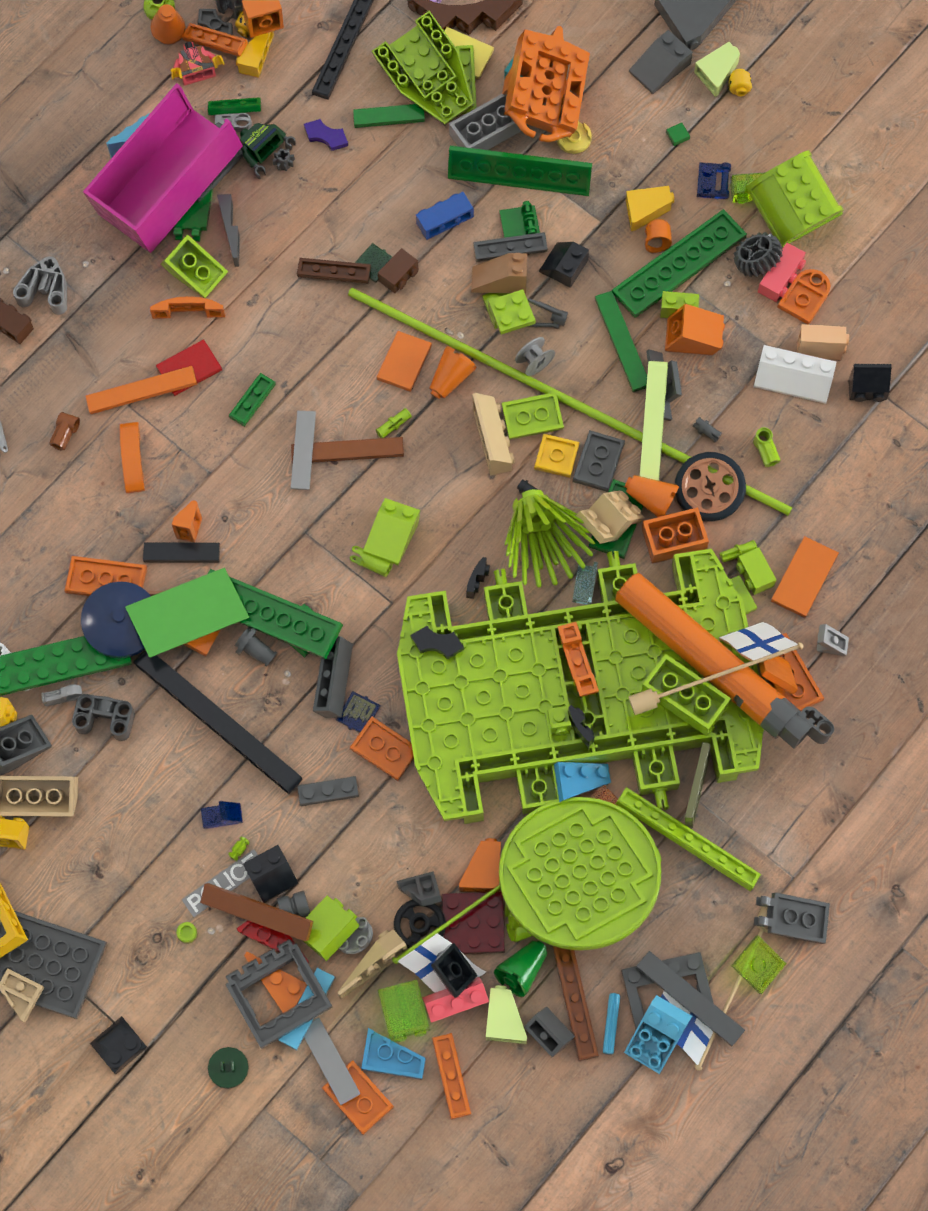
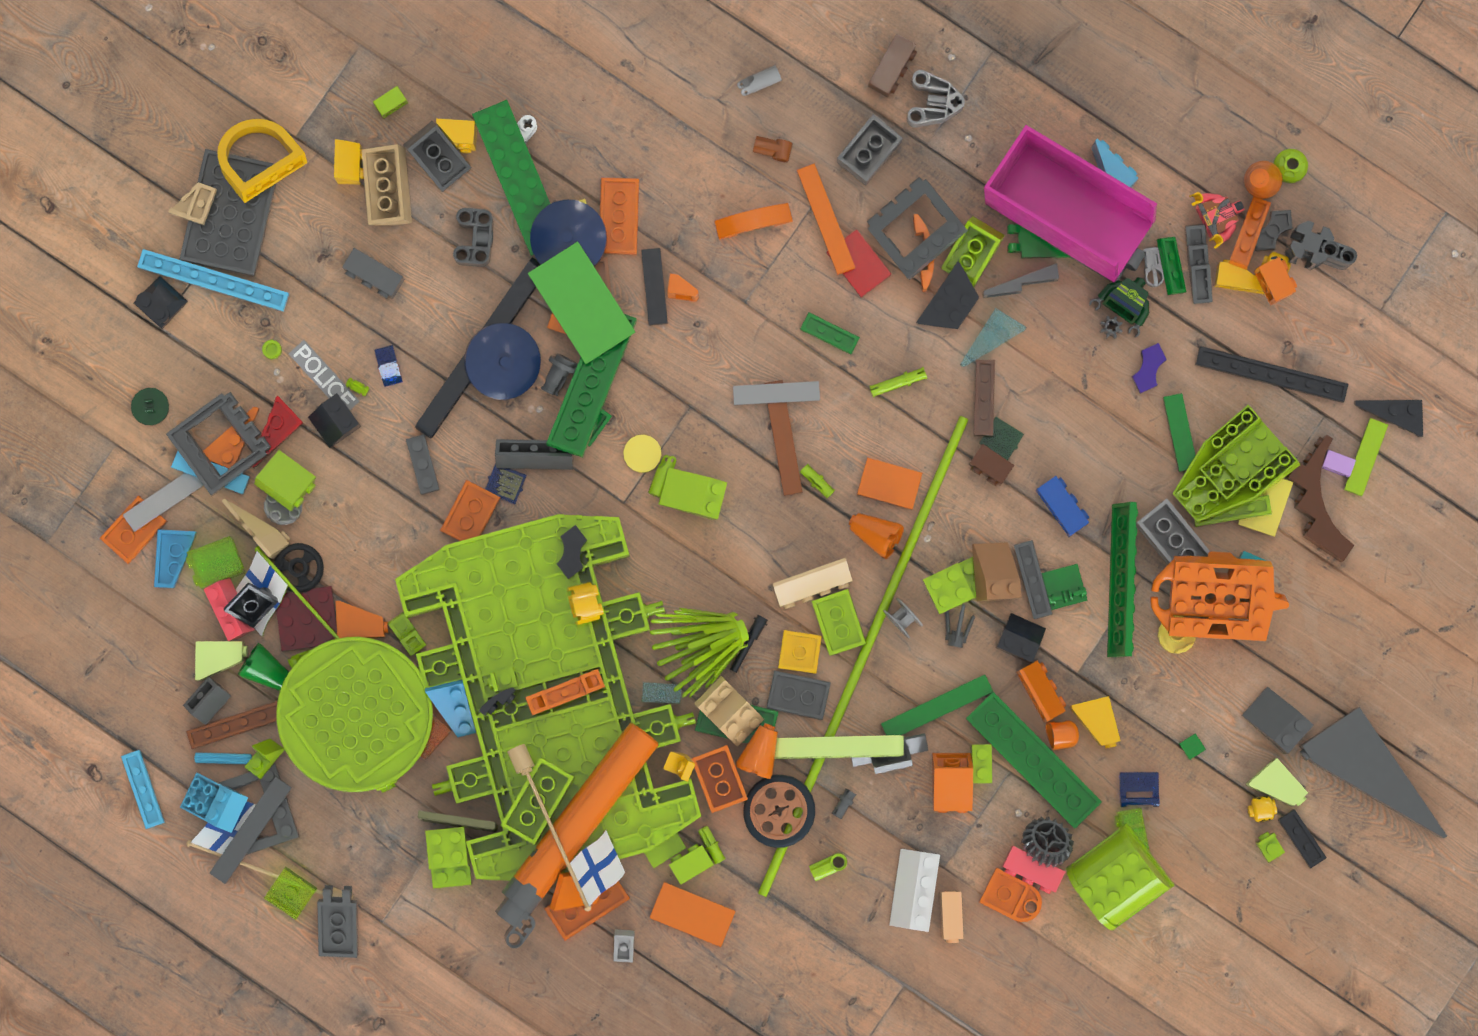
camera: 80 degrees right, 15 degrees up
(62, 695) = (492, 194): light grey piece -> none
(81, 343) = (869, 149): none -> dark grey brick
(103, 986) = (213, 280): none -> medium azure plate
(124, 820) = (372, 274): none -> dark grey brick
(183, 293) = (929, 248): none -> dark grey hinge
(234, 699) = (502, 361): none -> dark blue dish
(238, 290) = (951, 301): none -> black wing
(239, 85) = (1198, 263): none -> dark grey slope
(256, 912) = (292, 412): dark orange tile -> none
(273, 257) = (996, 331): none -> clear light blue wing
(296, 905) = (303, 446): dark grey wheel -> none
(306, 336) = (899, 381): none -> lime pin
(345, 579) = (642, 453): none -> light yellow tile
(421, 888) = (332, 566): dark grey wing -> none
(451, 1076) = (161, 614): orange tile -> none
(477, 576) = (660, 586): black slope -> none
(490, 630) = (584, 603): none -> yellow brick
(500, 822) = (406, 634): none -> lime slope
(616, 979) = (266, 754): none -> lime slope
(617, 249) = (1041, 691): none -> orange slope
(636, 1113) = (143, 789): none -> medium azure tile
(660, 563) = (679, 764): none -> yellow slope
(688, 839) = (405, 816): lime tile -> none
(733, 799) = (448, 857): none -> lime bracket
(768, 56) = (1302, 838): none -> black tile
(774, 81) = (1269, 846): none -> lime bracket
(870, 382) = (910, 968): black slope -> none

